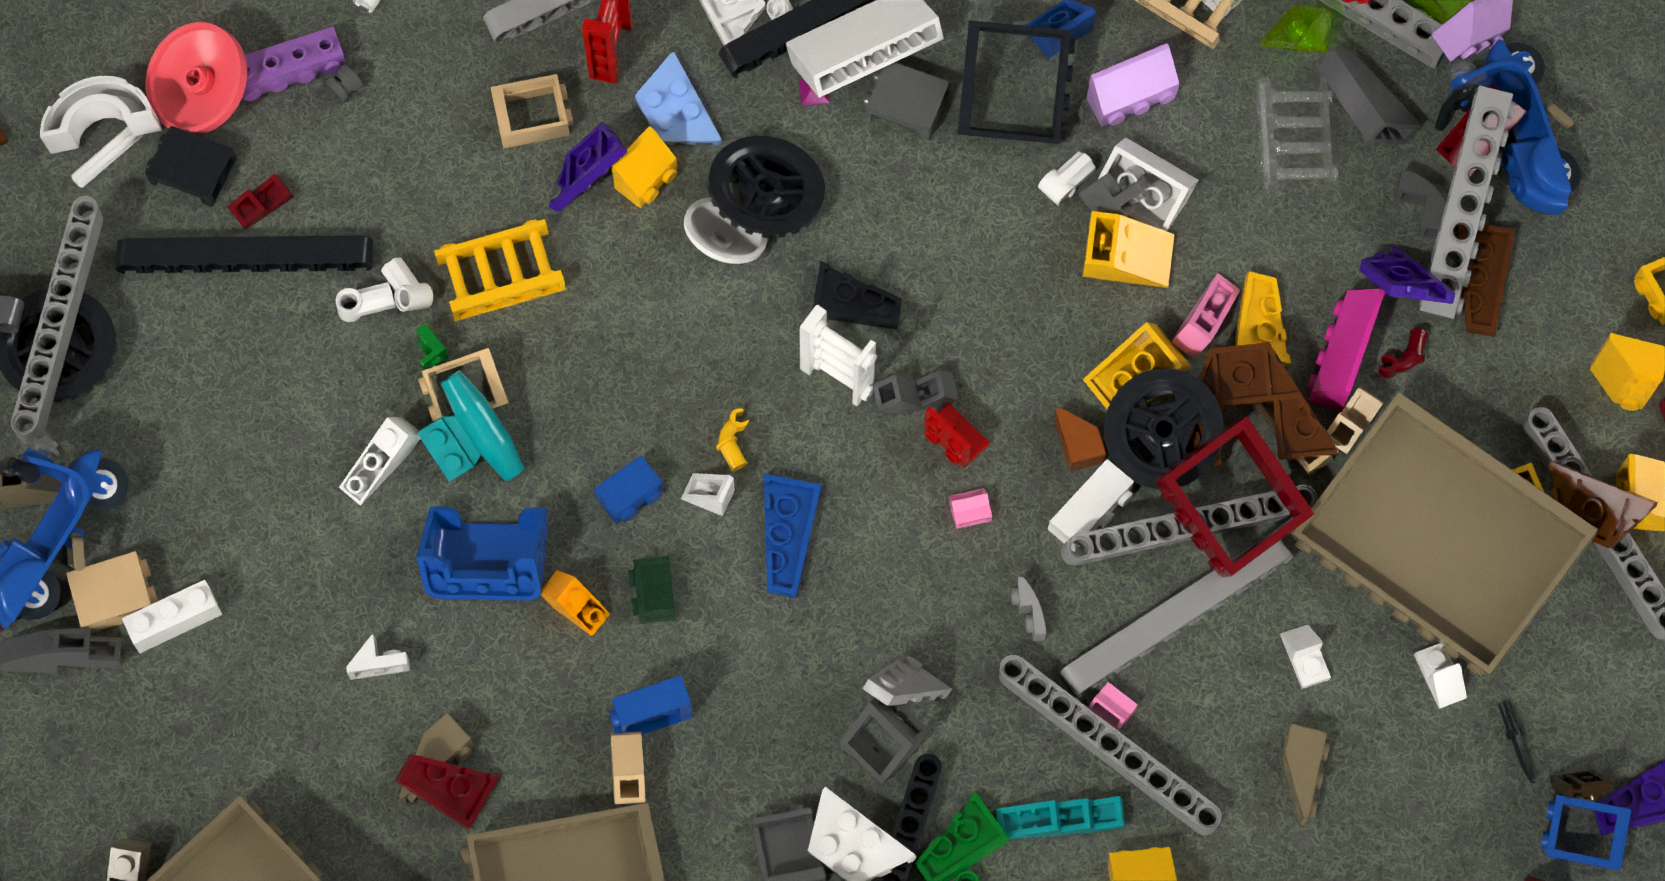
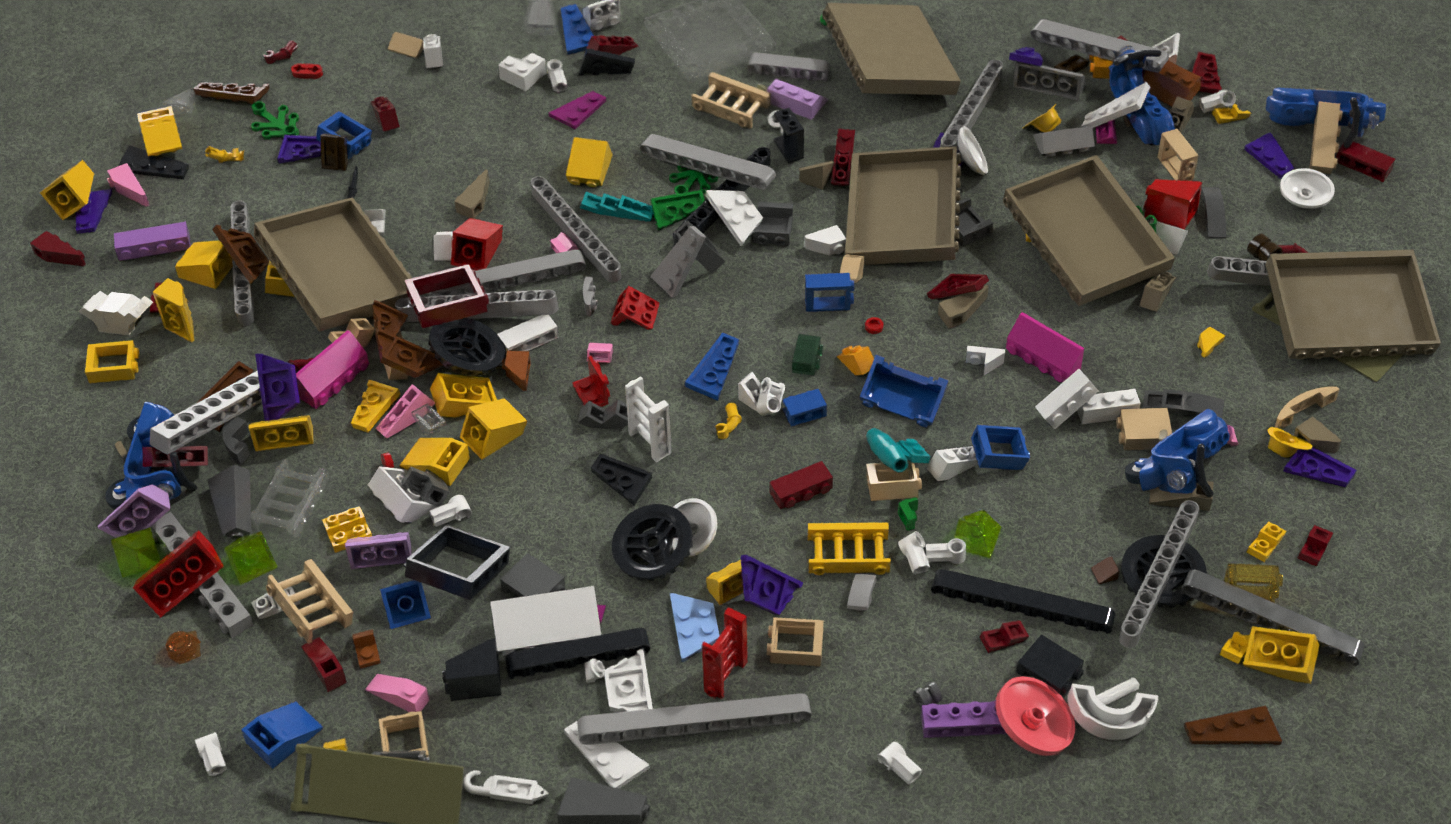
camera: 160 degrees left, 20 degrees down
(30, 804) = (1208, 340): none -> yellow slope
(139, 337) = (1105, 571): none -> reddish brown slope
(232, 589) = (1066, 398): none -> white brick
(285, 692) = (1044, 348): none -> dark pink slope
(328, 348) = (978, 532): none -> clear neon green slope
(346, 475) = (997, 434): none -> blue window
(465, 209) = (861, 592): none -> light grey slope
(567, 688) = (874, 325): none -> red tile
(593, 352) = (801, 485): none -> dark red brick
(681, 484) = (770, 394): none -> white piece
(687, 835) = (826, 241): none -> white slope
(948, 605) = (635, 307): none -> red bracket
(1067, 326) = (491, 426): none -> yellow slope
(1161, 303) = (428, 420): none -> clear slope
(1192, 230) = (387, 460): none -> red tile
(1195, 119) = (346, 526): none -> yellow slope
(1253, 666) = (475, 243): none -> red slope
(1364, 229) = (281, 433): none -> yellow slope

